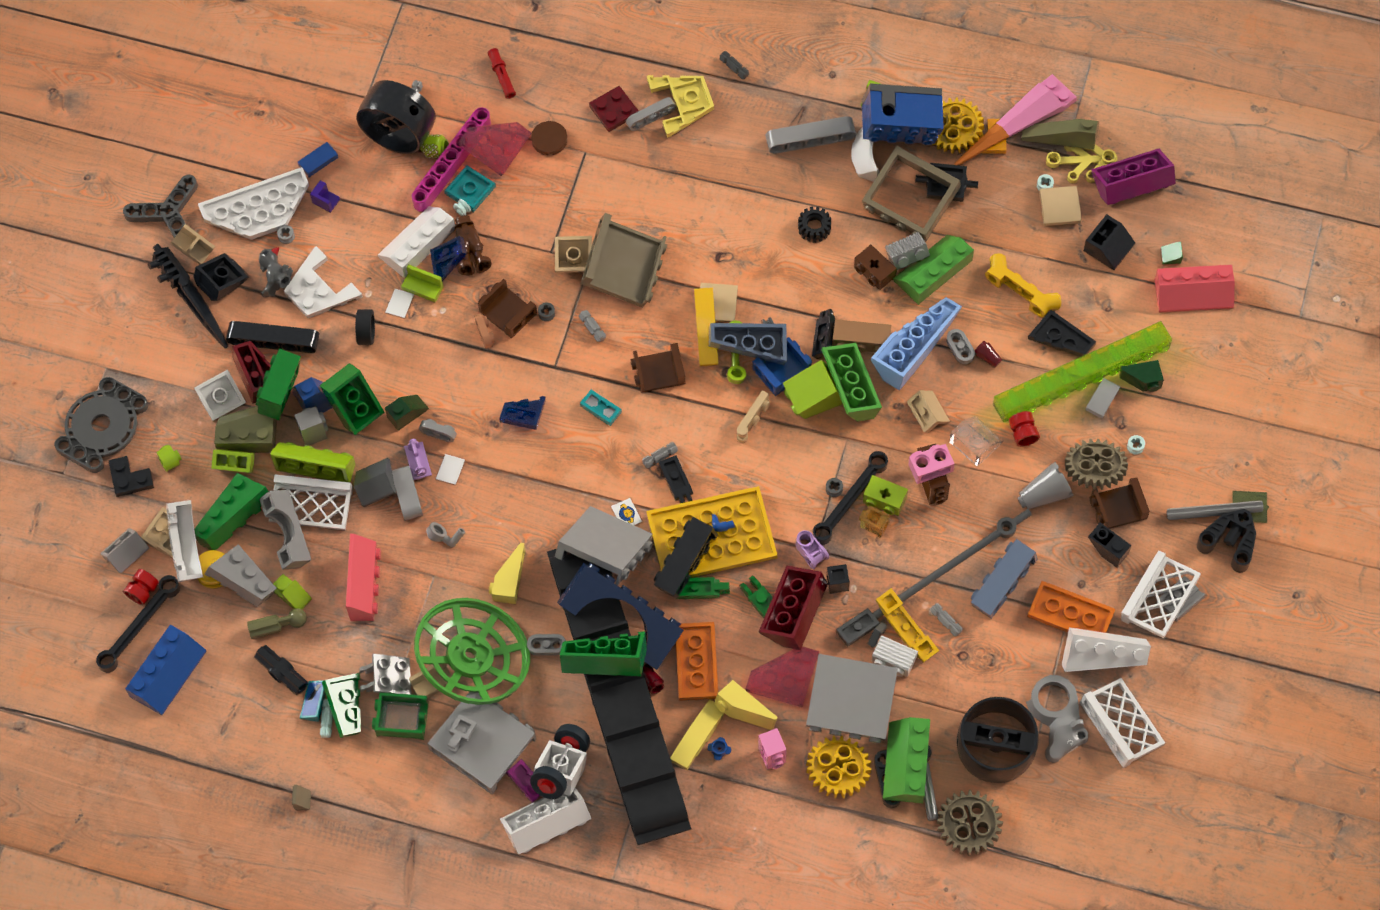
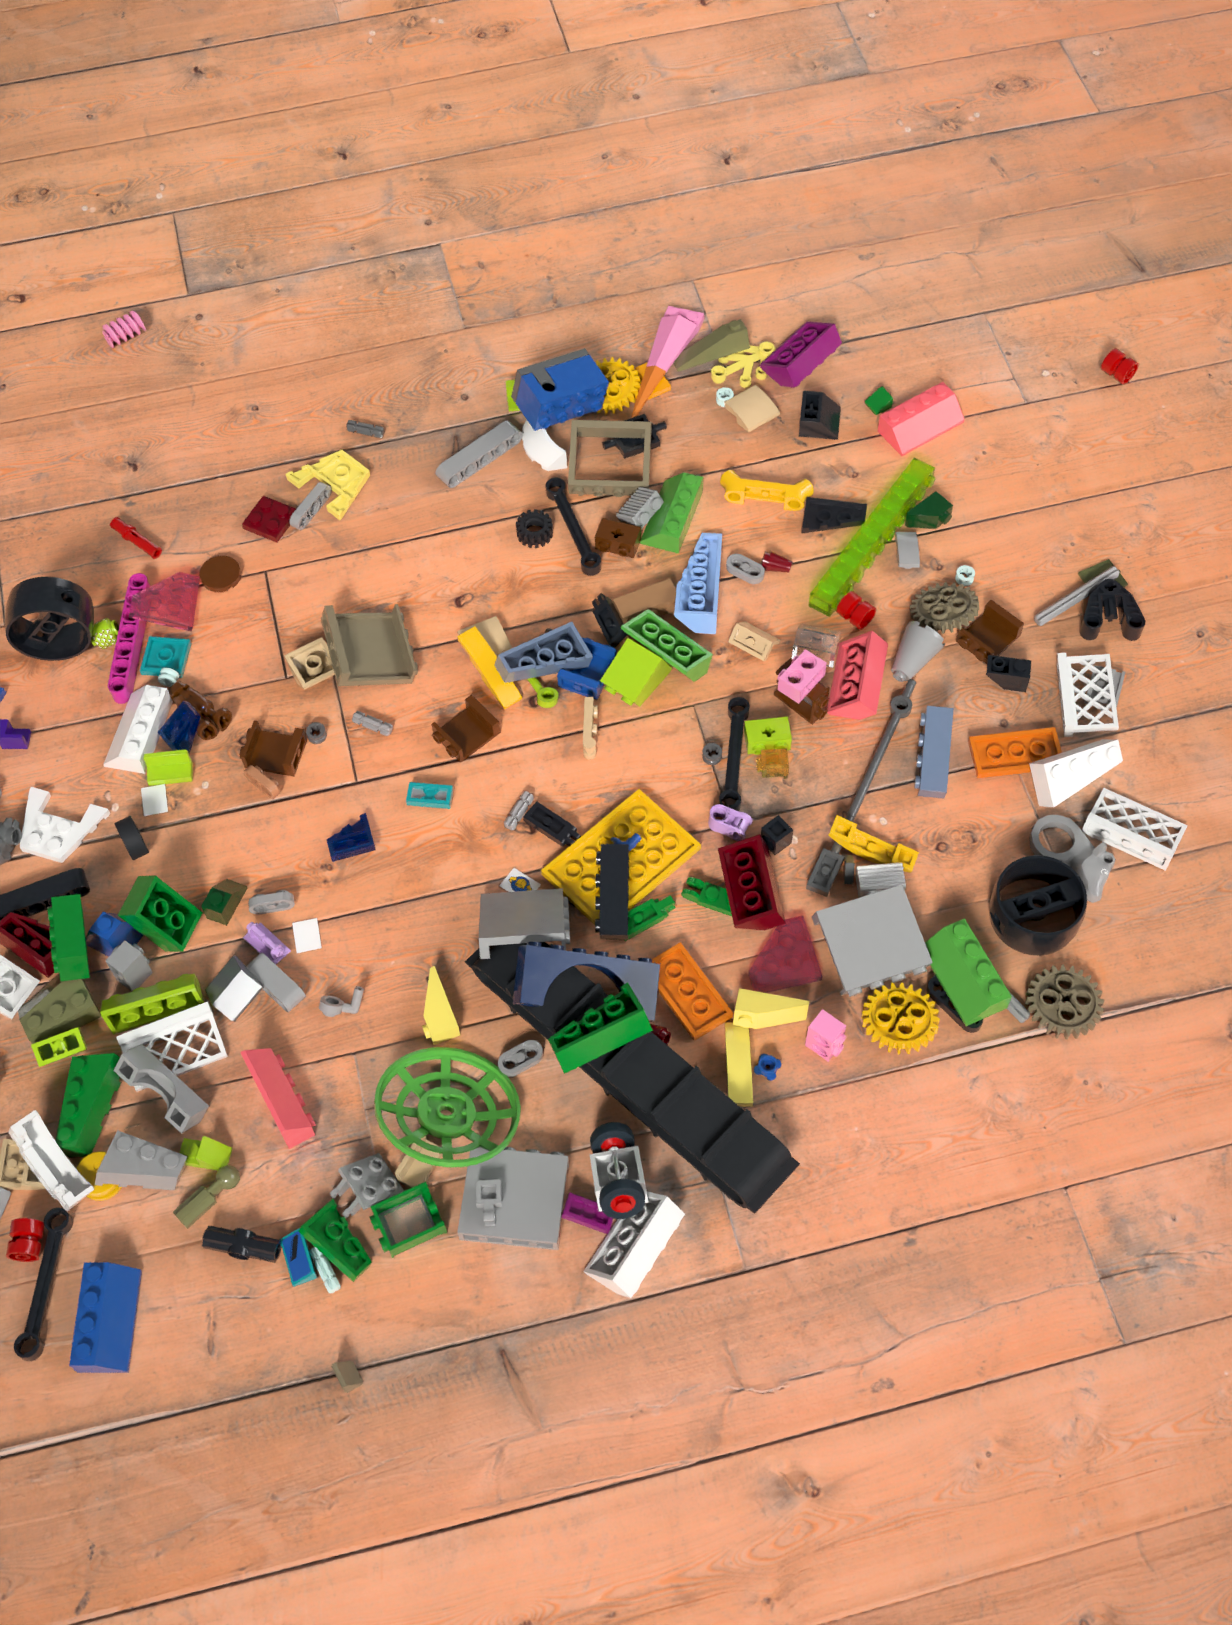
camera: 30 degrees left, 5 degrees down
(847, 237) = (573, 526): none -> black piece
(946, 619) = (904, 820): light grey axle -> none
(988, 485) = (858, 677): none -> coral slope

